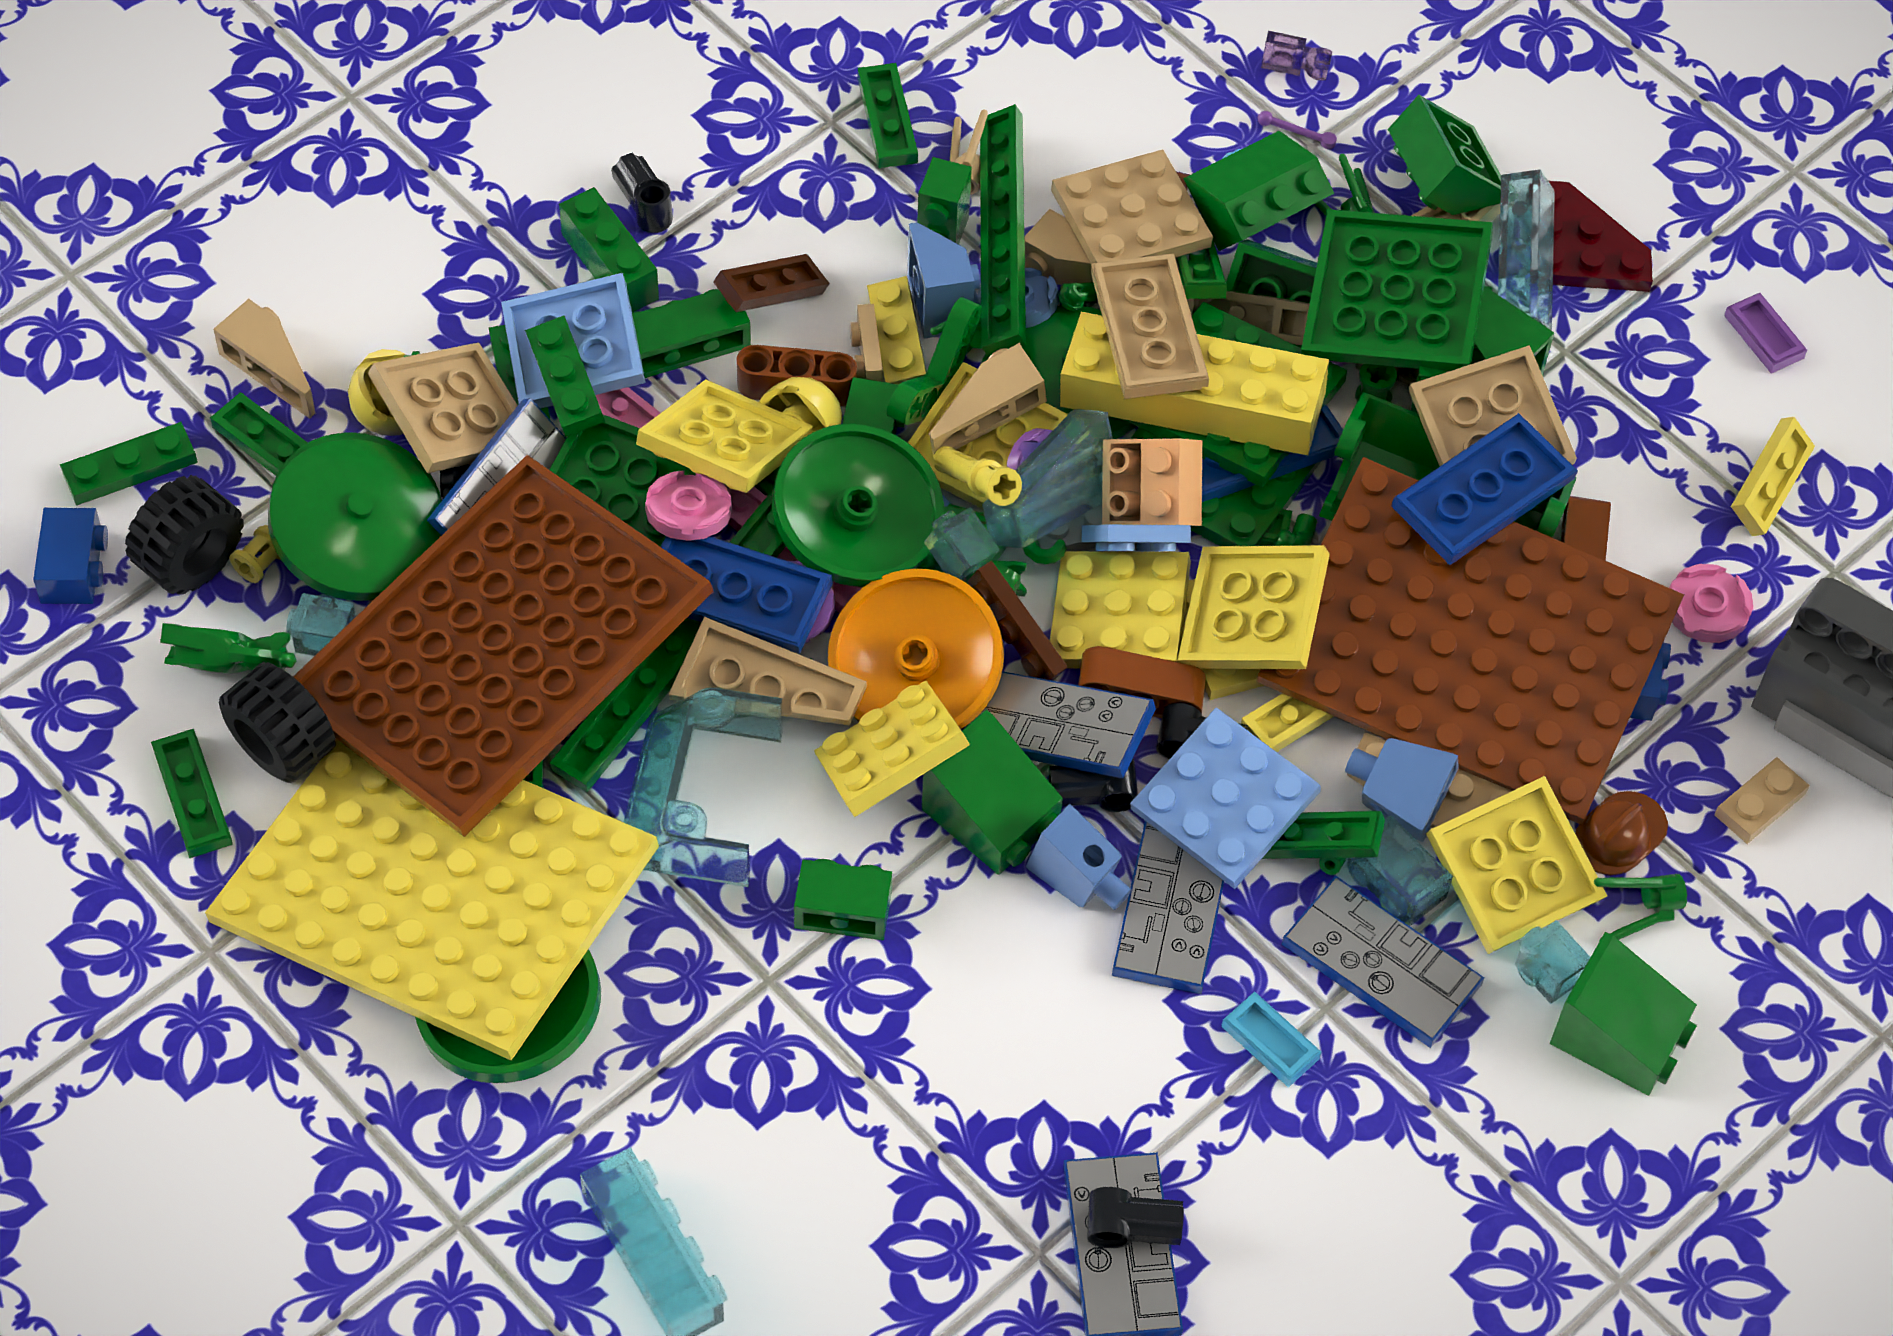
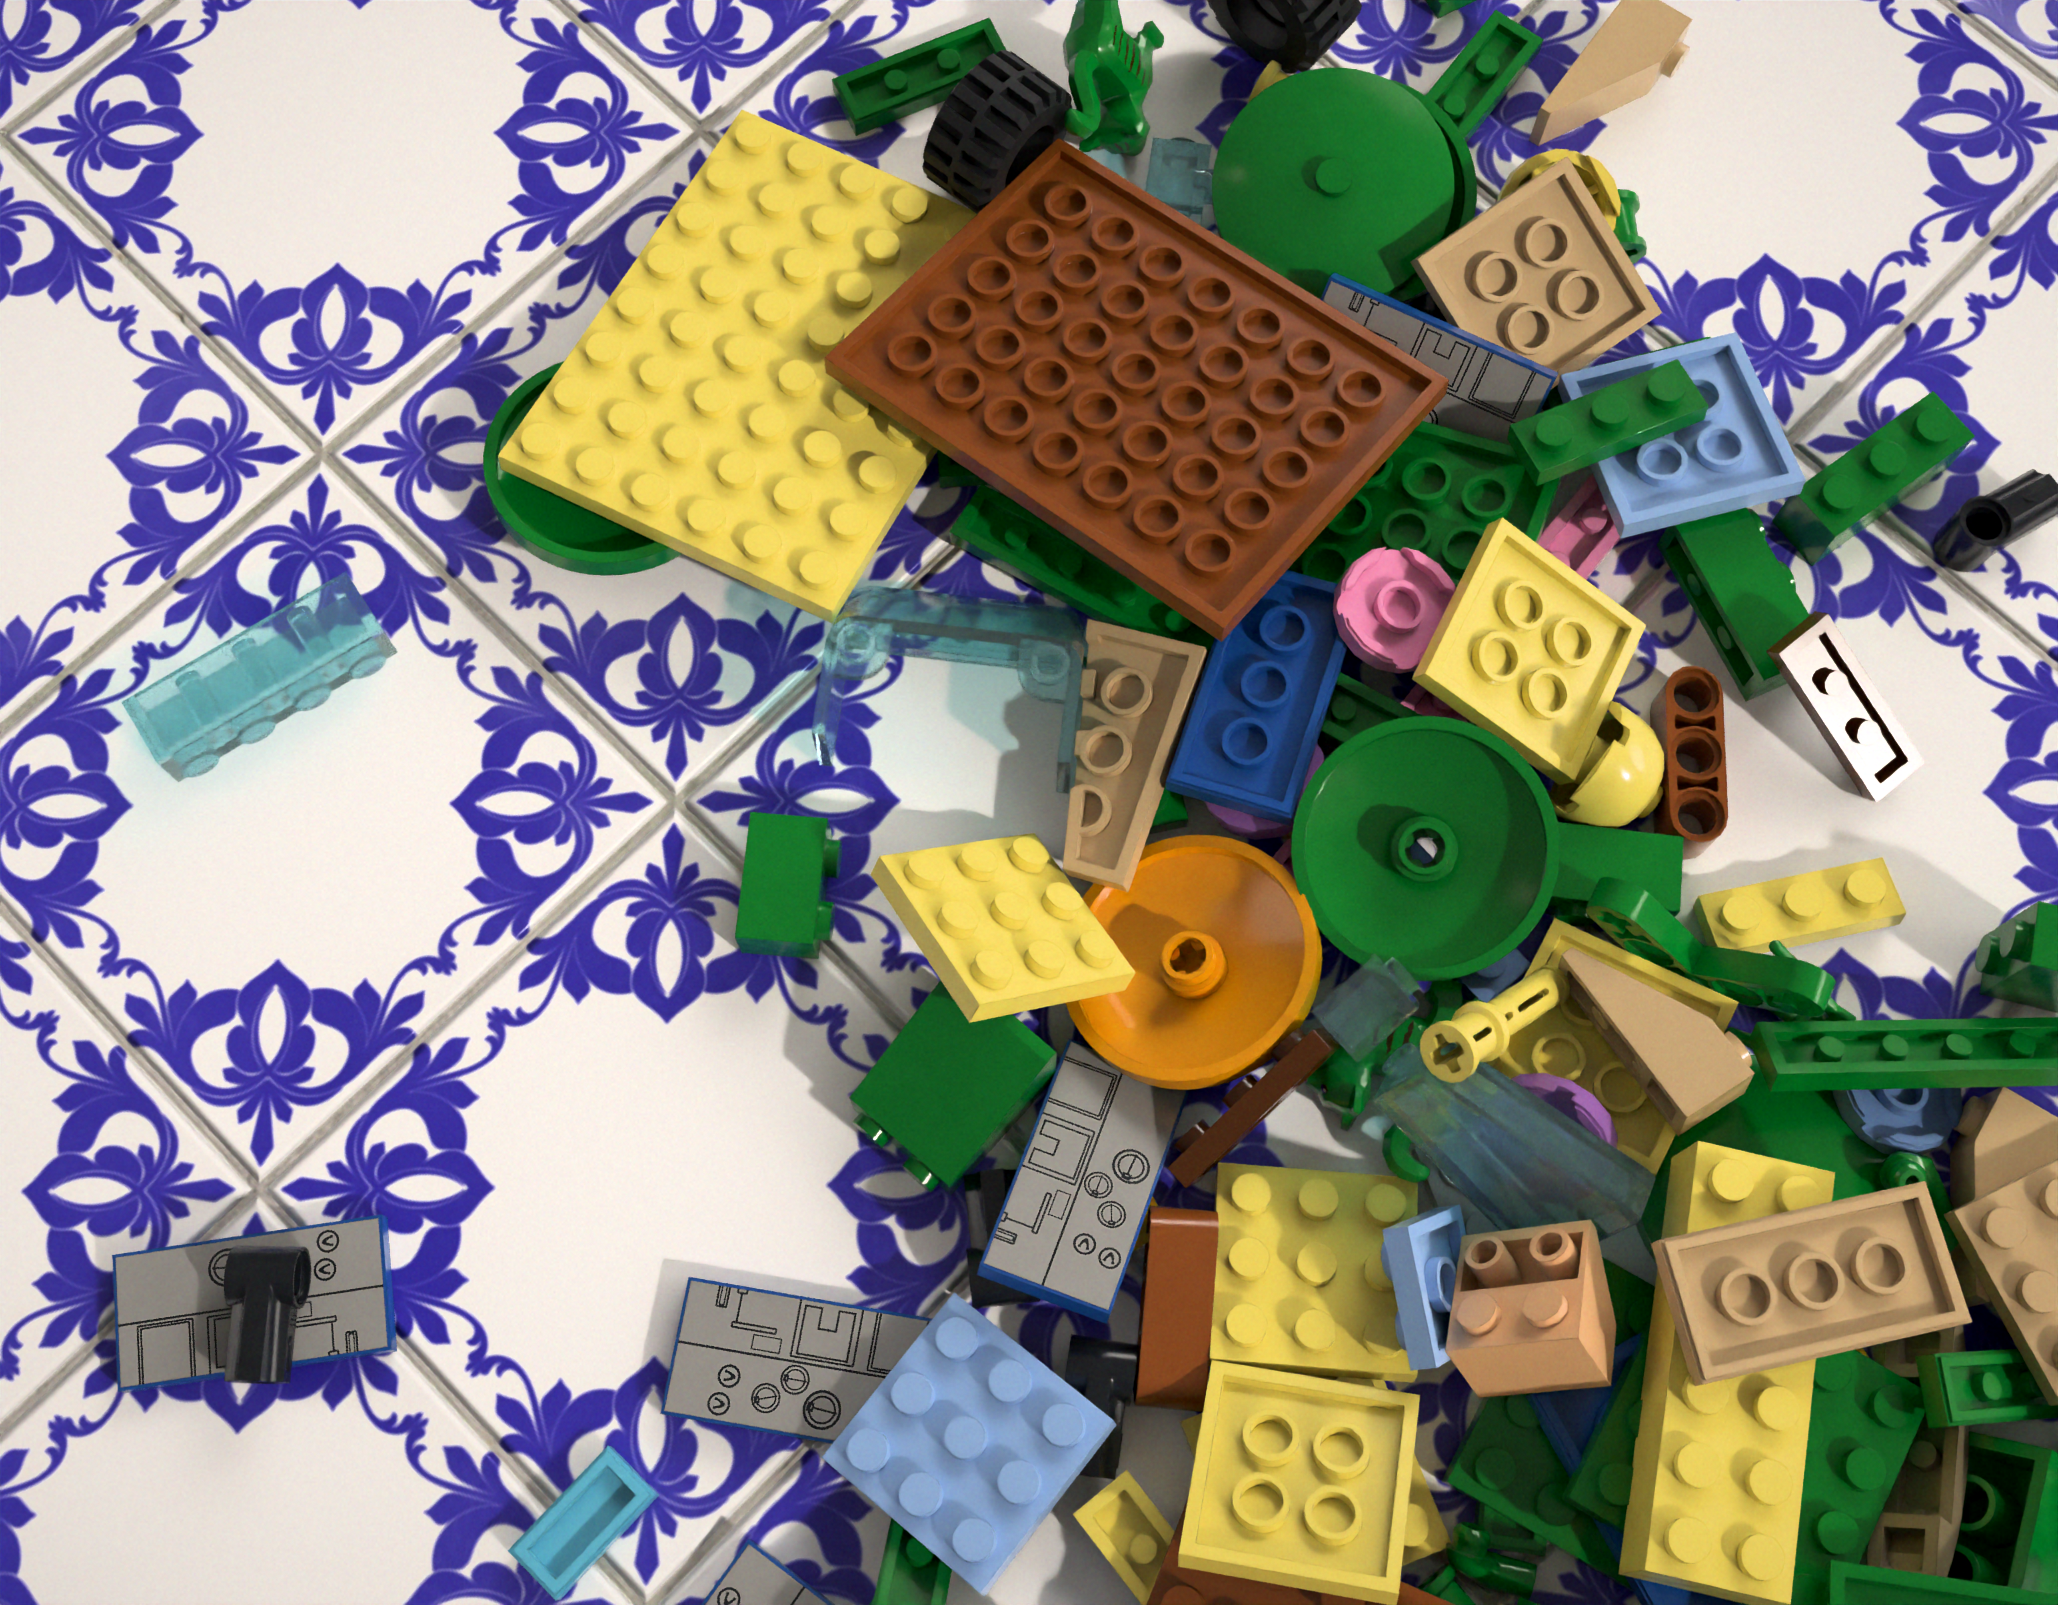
camera: 90 degrees right, 15 degrees up
(865, 336) = (1779, 856): tan plate -> none
(938, 276) = (1893, 955): medium blue slope -> none
(1078, 861) = (867, 1198): medium blue torso -> none

